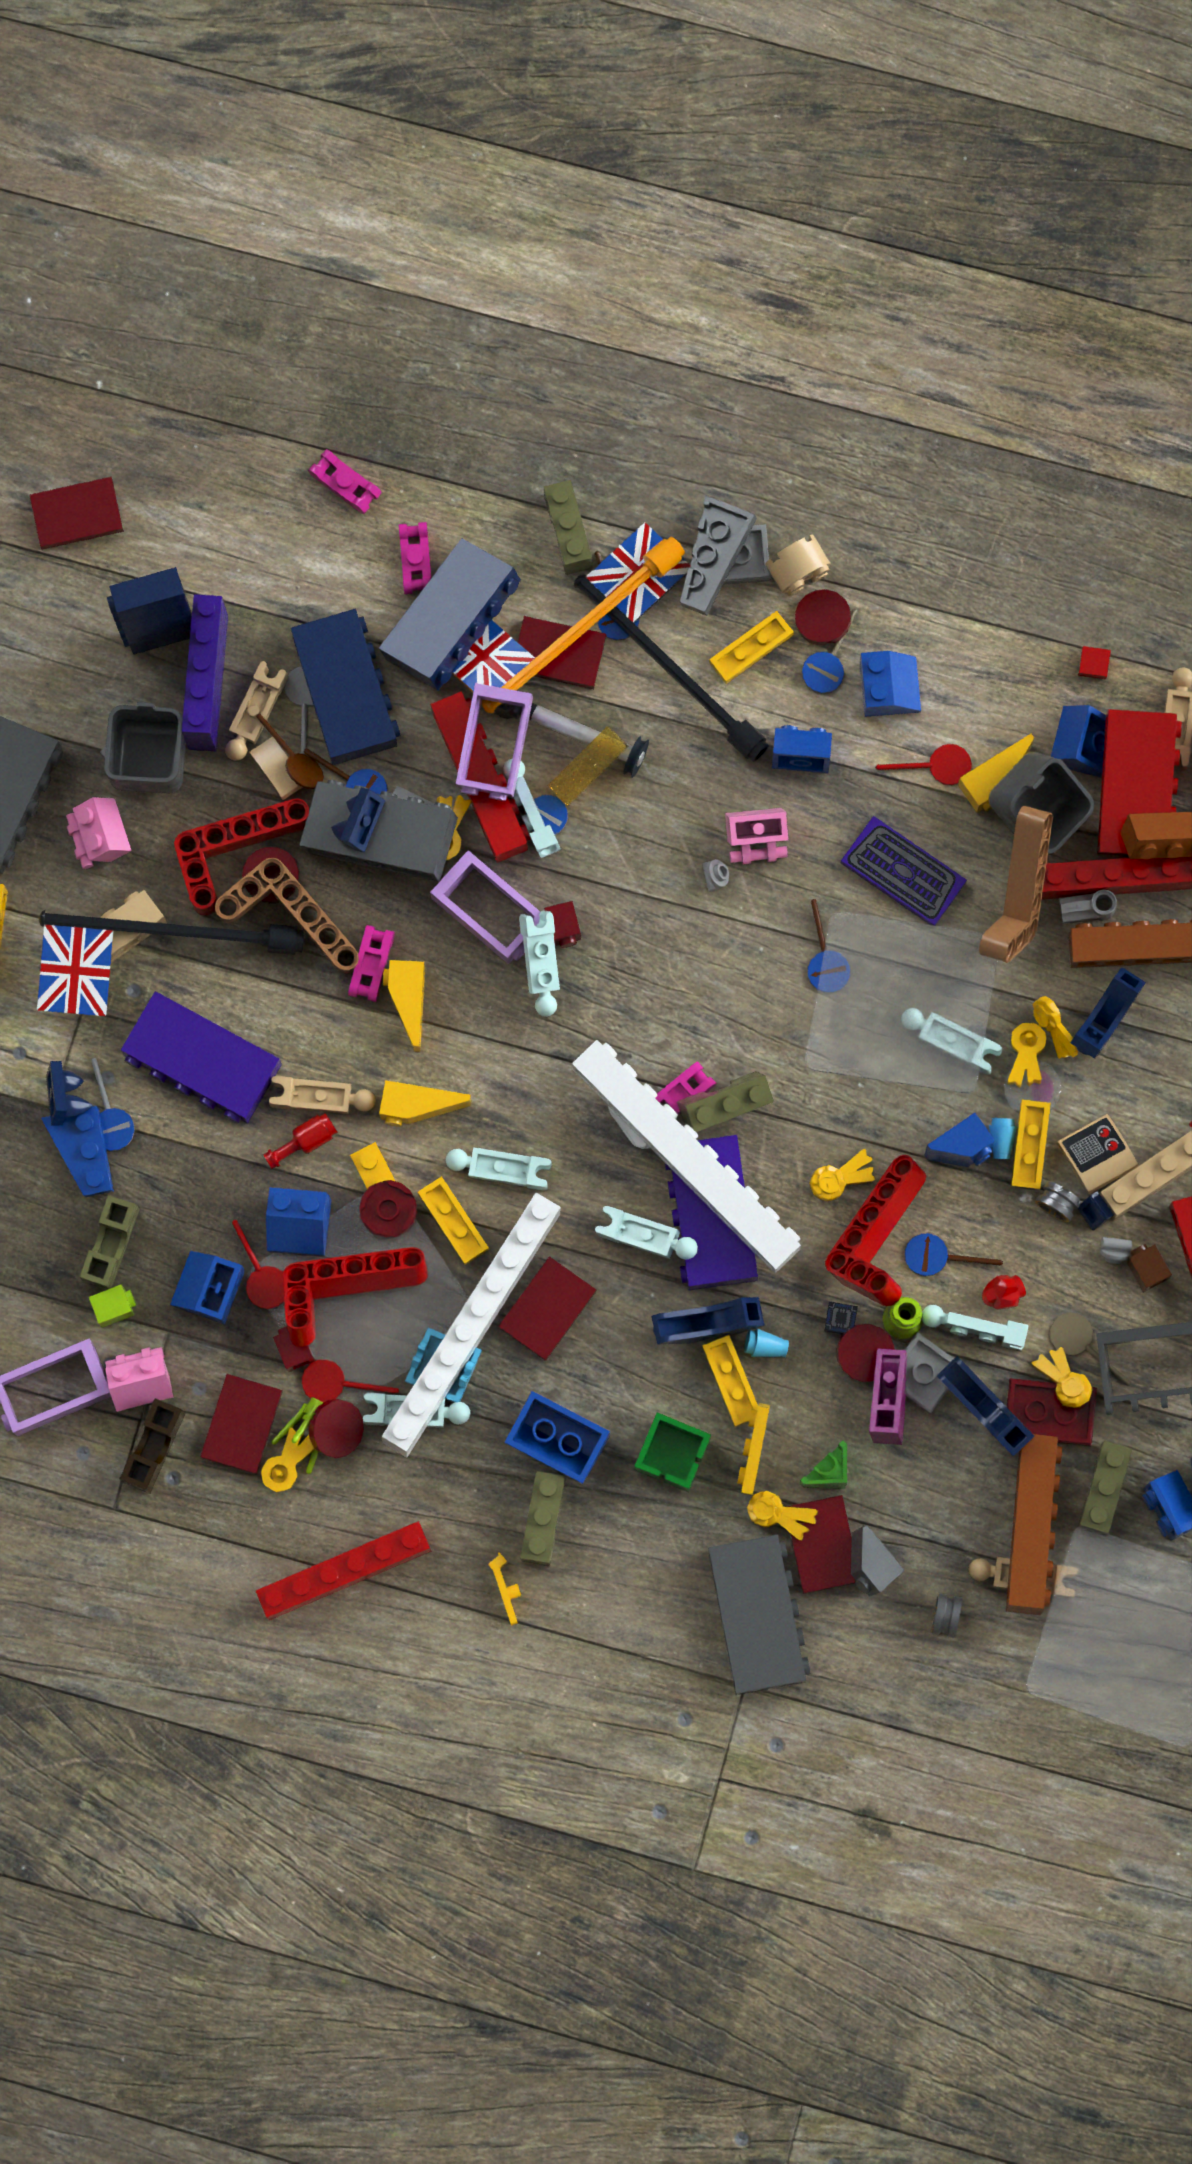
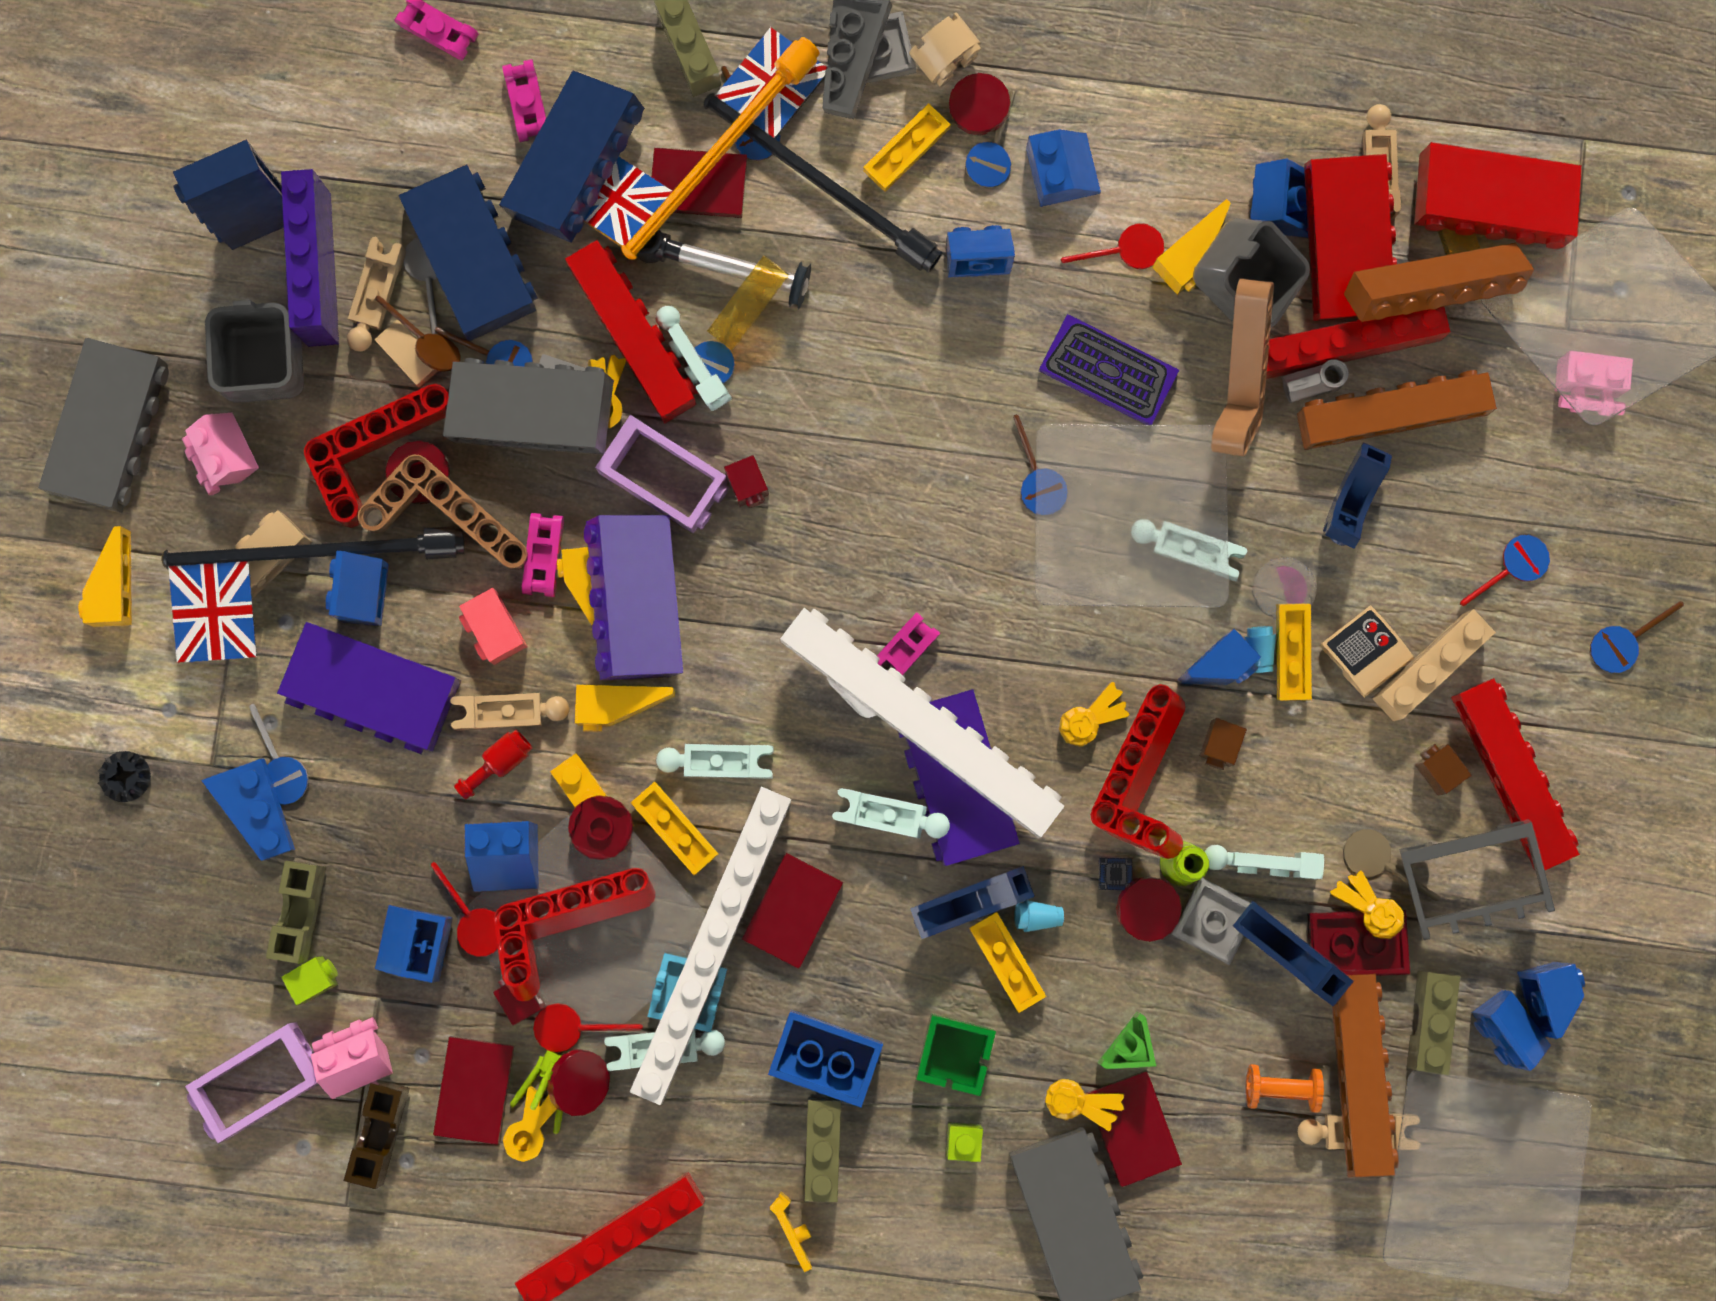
camera: 15 degrees left, 5 degrees up
(62, 1104) = (224, 763): dark blue tile -> none
(76, 513) = (146, 102): dark red tile -> none
(204, 969) = (357, 588): none -> blue slope
(318, 1020) = (492, 627): none -> coral brick
(363, 817) = (507, 398): dark blue tile -> none
(447, 1011) = (633, 597): none -> brick
(502, 696) = (639, 237): lavender window -> none
(541, 960) = (728, 525): light aqua plate -> none
(669, 1531) = (964, 1142): none -> lime brick
(715, 874) = (905, 403): light grey plate -> none
(716, 1107) = (938, 665): olive arch -> none
(753, 1448) = (1044, 1036): yellow plate -> none
(757, 827) = (942, 345): bright pink brick -> none
(871, 1562) = (1192, 1145): slope -> none
(888, 1397) = (1183, 955): magenta slope -> none
(928, 1255) = (1199, 788): blue piece -> none
(946, 1615) = (1283, 1190): flat silver wheel -> none
(953, 1216) = (1222, 743): none -> reddish brown brick
(962, 1526) = (1284, 1088): none -> orange hose
(1003, 1292) = (1290, 819): red rock -> none
(1028, 1042) = (1273, 538): yellow piece -> none
(1049, 1017) = (1293, 508): yellow piece -> none
(1058, 1201) = (1333, 711): flat silver wheel -> none
(1094, 662) = (1279, 113): red tile -> none
(1095, 1211) = (1374, 715): dark blue tile -> none
(1115, 1249) = (1403, 754): light grey plate -> none

